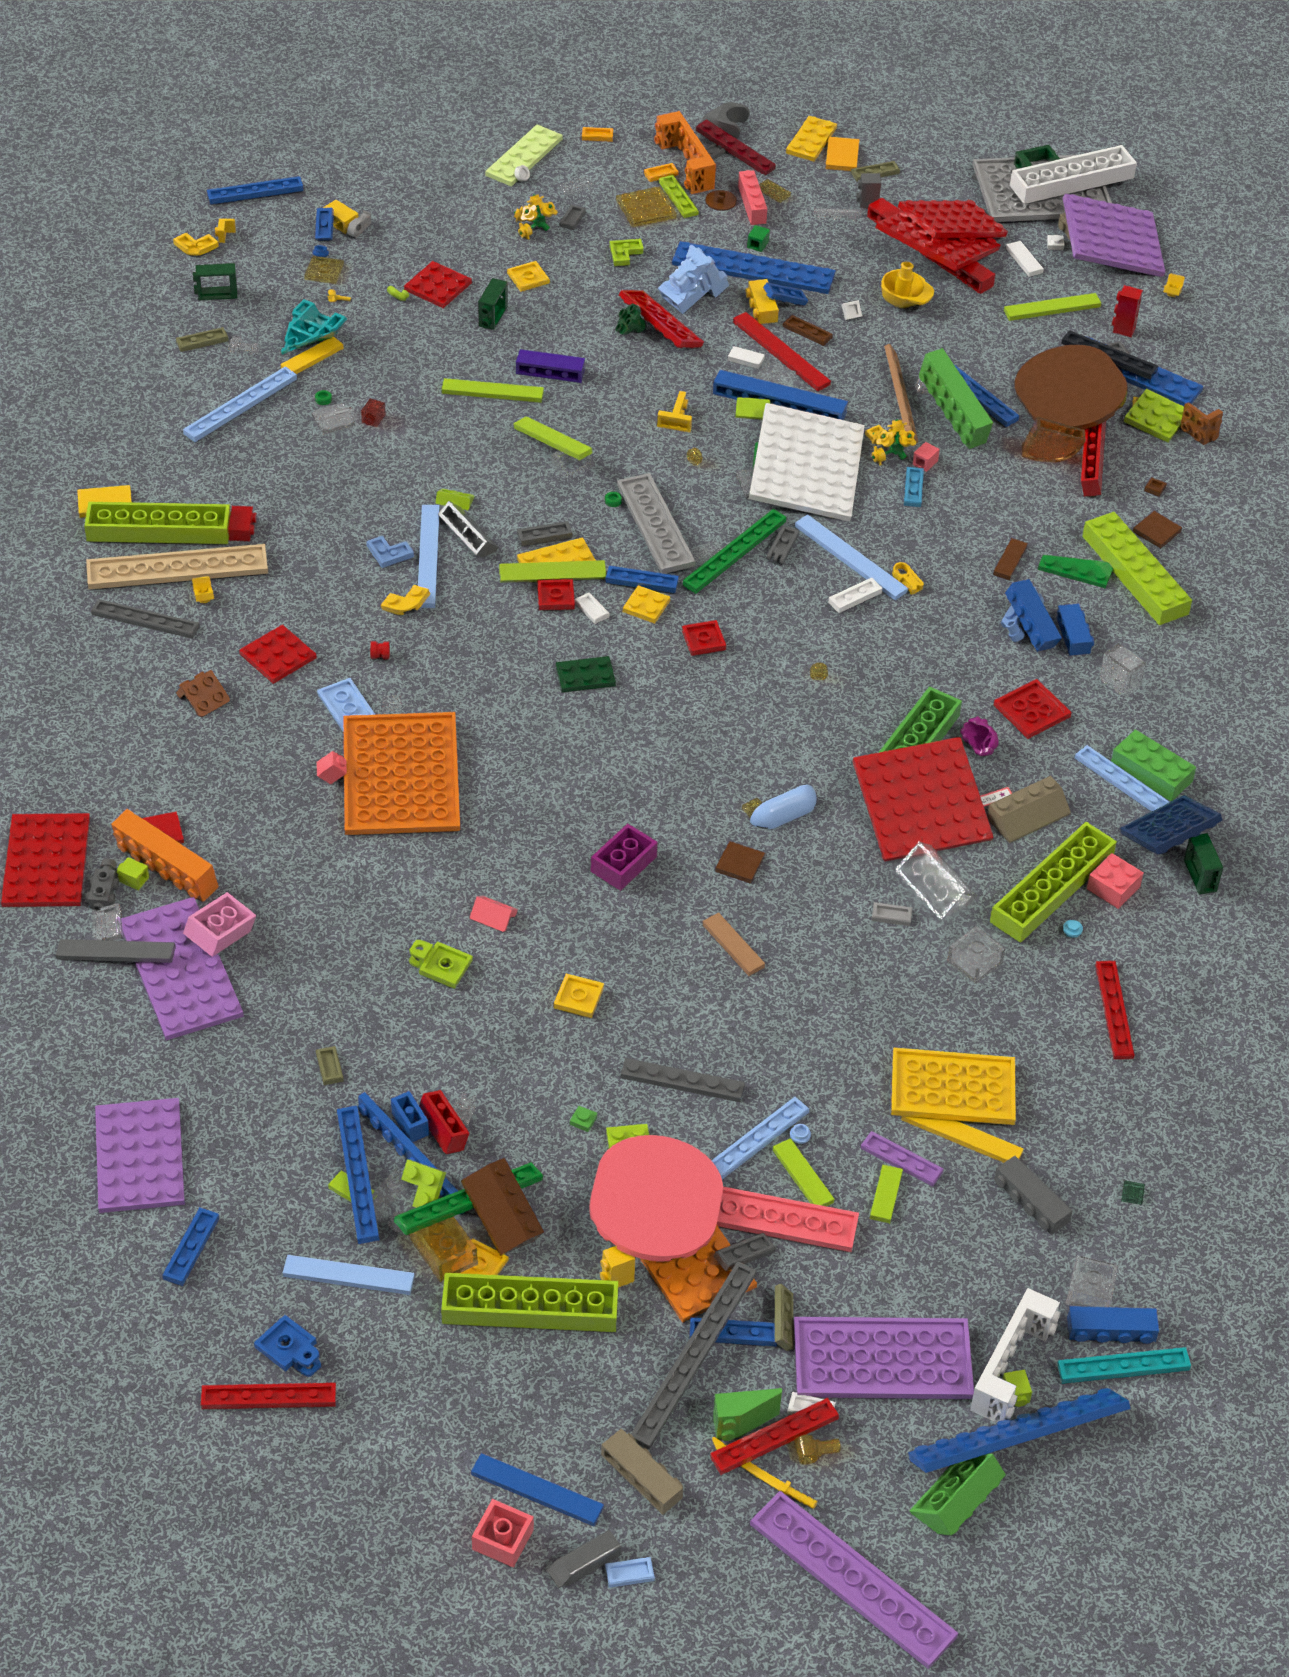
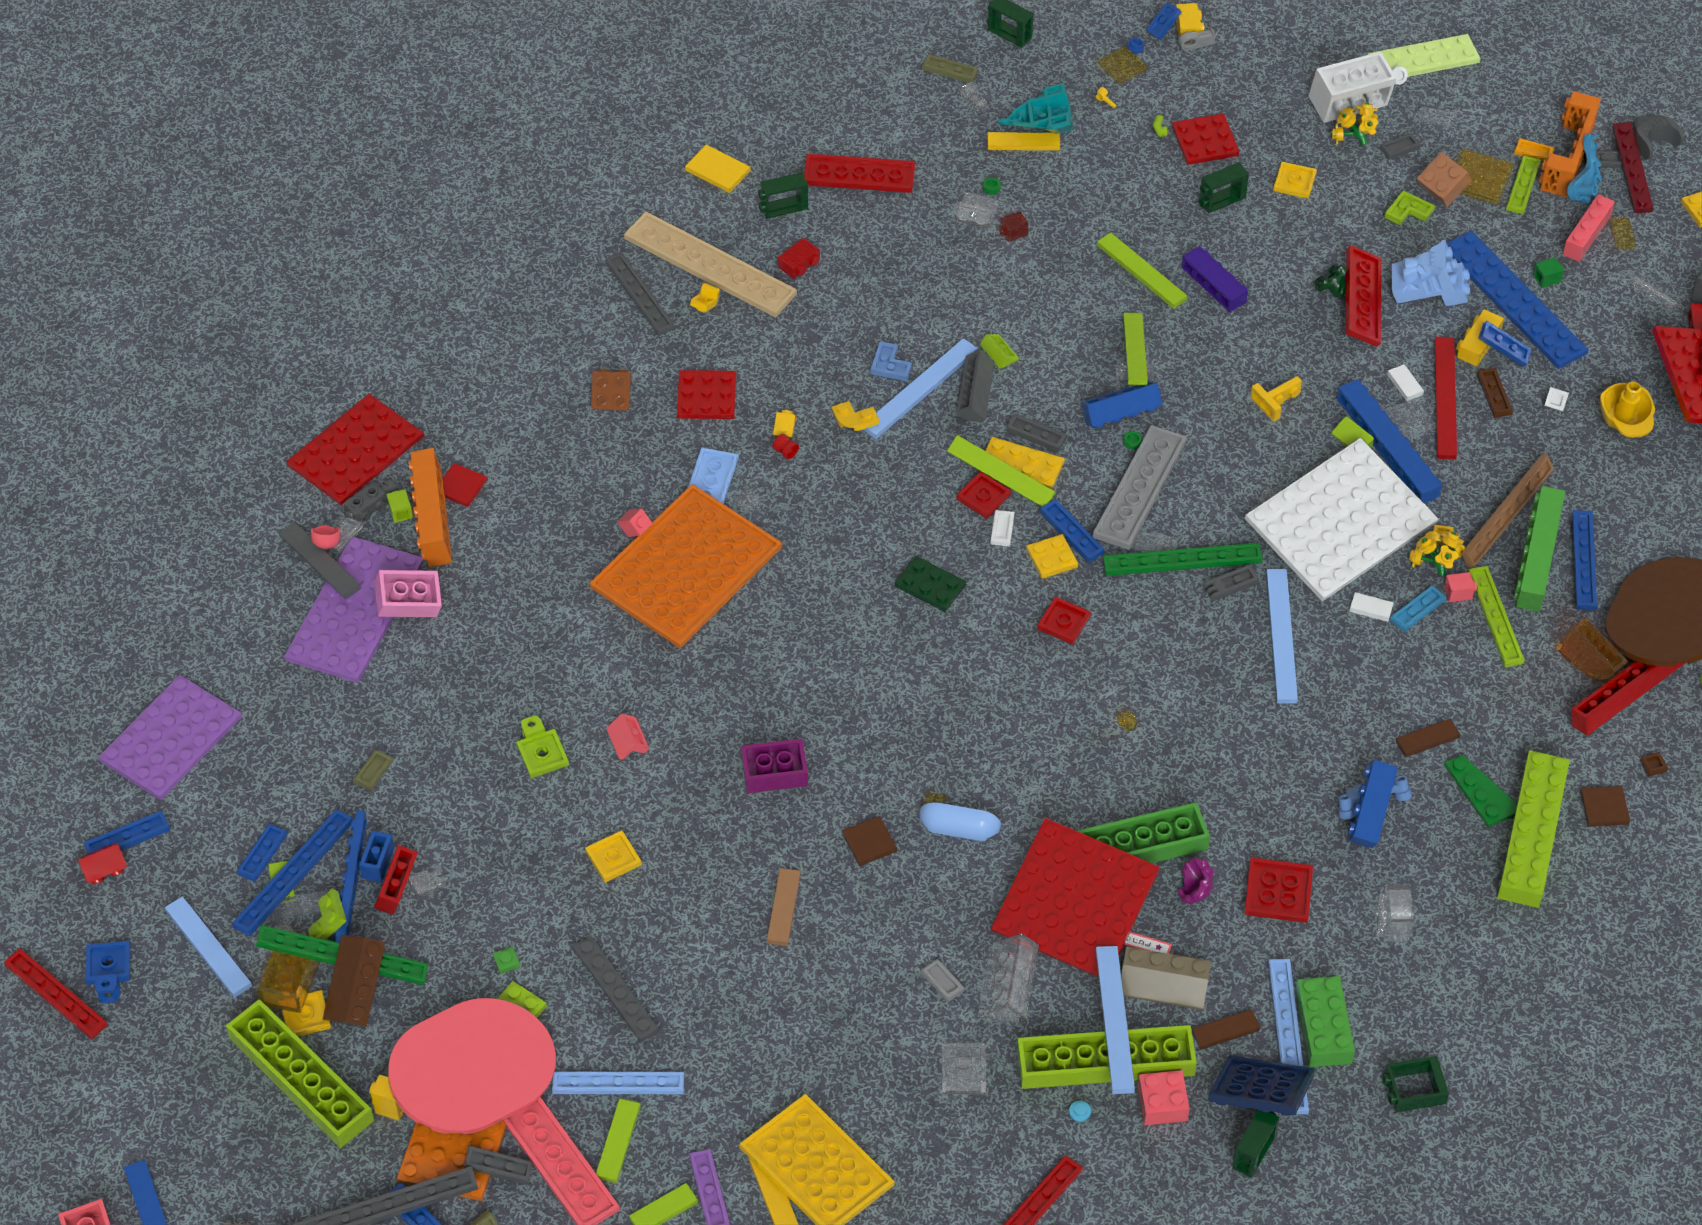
camera: 45 degrees right, 5 degrees up
(105, 929) = (325, 536): none -> coral hair
(157, 522) = (730, 214): lime brick -> none
(186, 473) = (785, 205): none -> dark green window
(197, 1277) = (102, 863): none -> red brick
(217, 443) = (859, 173): none -> red plate
(239, 404) = (917, 148): light blue plate -> none
(311, 1181) = (262, 852): none -> blue tile
(361, 636) = (784, 423): none -> yellow bracket
(506, 192) = (1352, 84): none -> white brick
(583, 479) = (1121, 404): none -> blue brick
(597, 134) = (1516, 76): light orange tile -> none
(631, 217) = (1444, 179): none -> nougat brick
(694, 456) = (1247, 447): clear yellow tile -> none
(721, 200) = (1561, 212): reddish brown piece -> none
(724, 175) = (1585, 183): none -> dark azure animal
(800, 1134) = (653, 1106): light blue plate -> none
(855, 595) = (1242, 673): white plate -> none
(885, 504) = (1371, 607): none -> white tile
(909, 579) = (1308, 692): yellow piece -> none
(969, 462) = (1496, 617): none -> lime tile
(1039, 851) = (1115, 1020): none -> light blue tile
(1074, 629) = (1405, 845): blue brick -> none
(1101, 810) = (1225, 1029): none -> reddish brown tile
(1246, 748) = (1432, 1067): none -> dark green window

